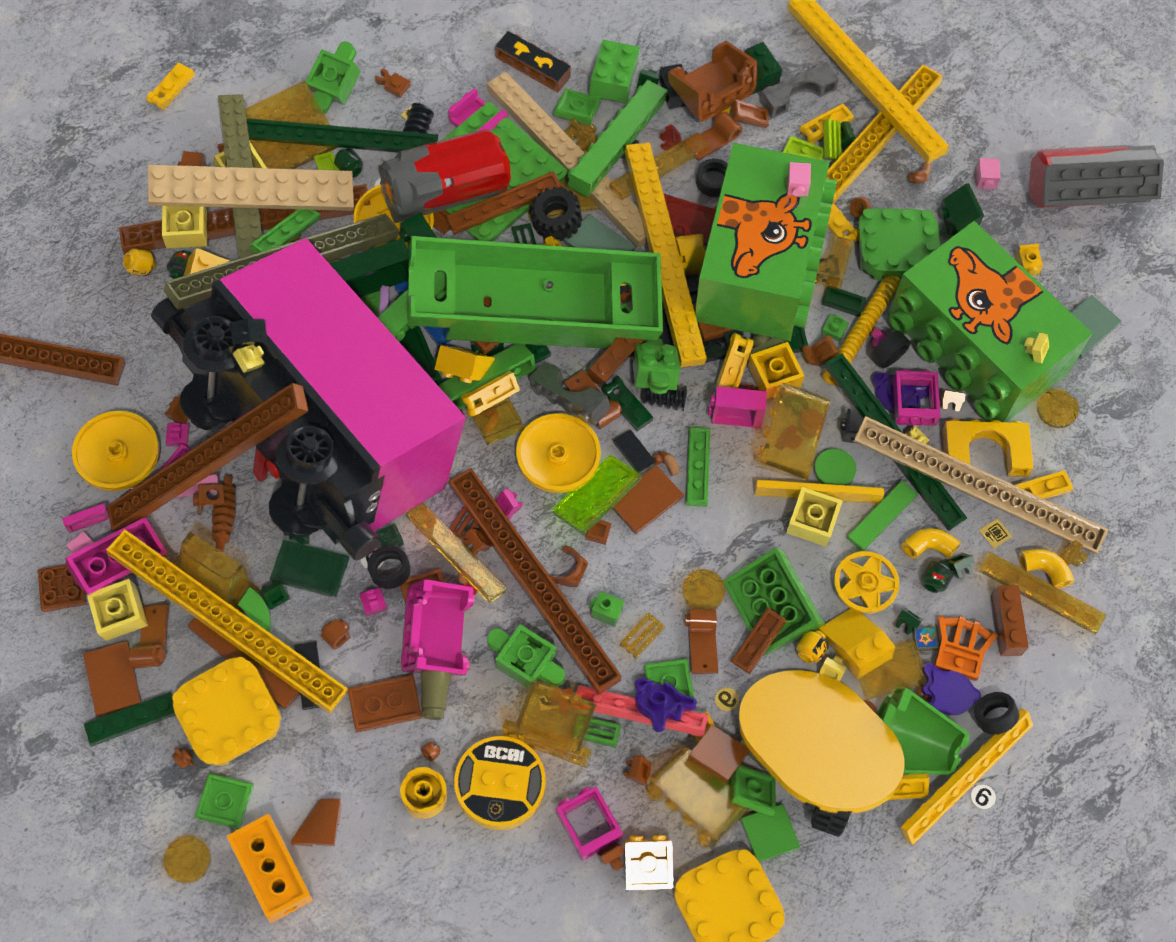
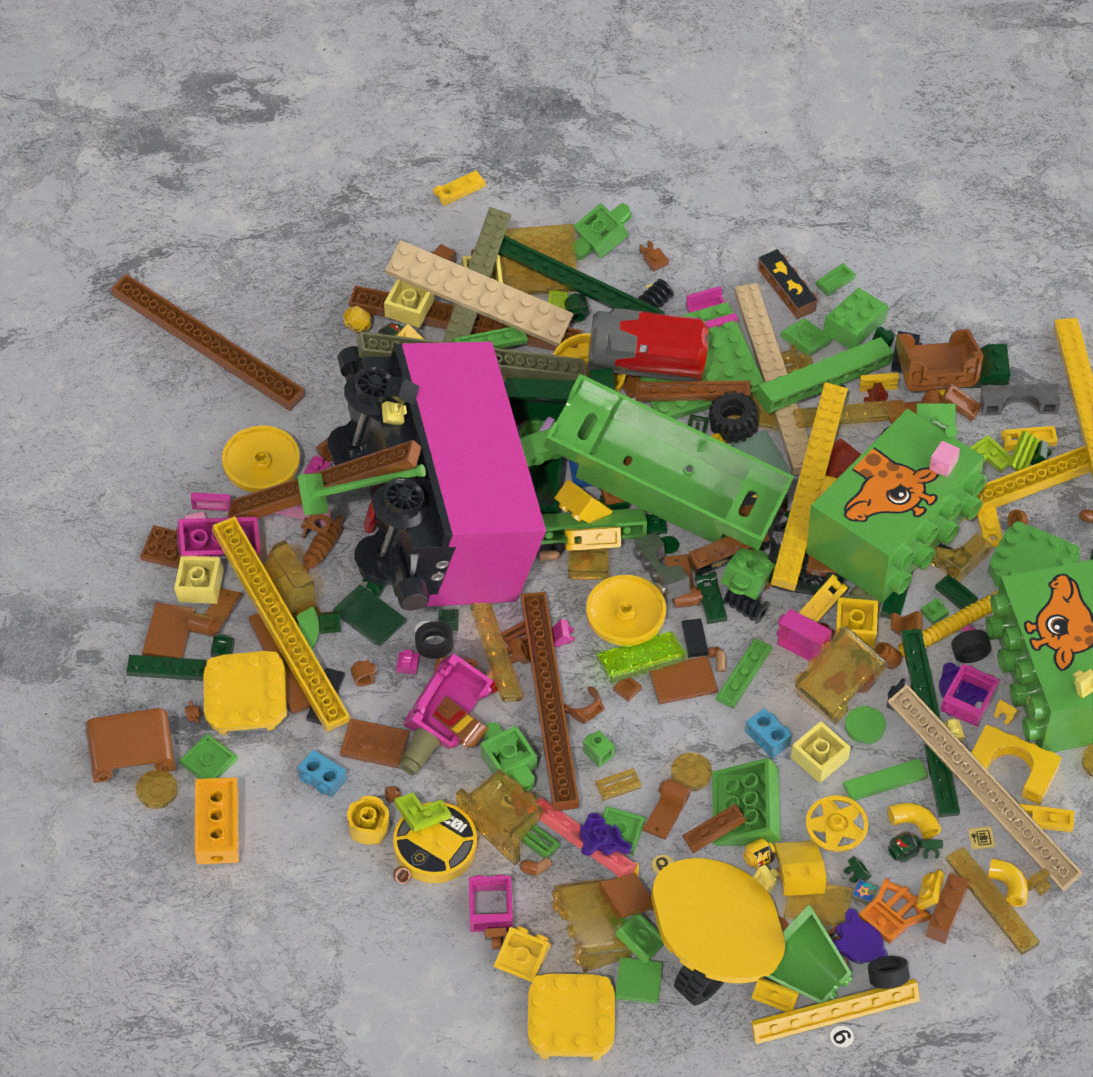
camera: 30 degrees right, 10 degrees down
(135, 827) = (129, 741): none -> dark orange windscreen
(176, 670) = (221, 645): none -> dark green tile
(207, 479) = (314, 494): none -> bright green tile
(320, 824) = (274, 809): dark orange slope -> none
(351, 757) = (324, 770): none -> dark azure brick
(461, 645) = (460, 722): none -> dark orange door
(474, 767) = (421, 816): none -> lime plate
(485, 834) = (403, 877): none -> dark orange hinge
(560, 363) = (671, 544): none -> dark green sticker
(572, 40) = (835, 279): none -> bright green tile
(610, 763) = (534, 868): none -> arm
(639, 770) = (555, 877): dark orange tile -> none
(658, 127) = (888, 380): none -> yellow tile
(746, 134) = (940, 415): none -> bright green tile
(752, 523) = (764, 735): none -> dark azure brick
(822, 389) = (889, 653): none -> dark orange brick
(841, 492) = (858, 745): yellow tile -> none
(986, 610) = (930, 889): none -> yellow plate

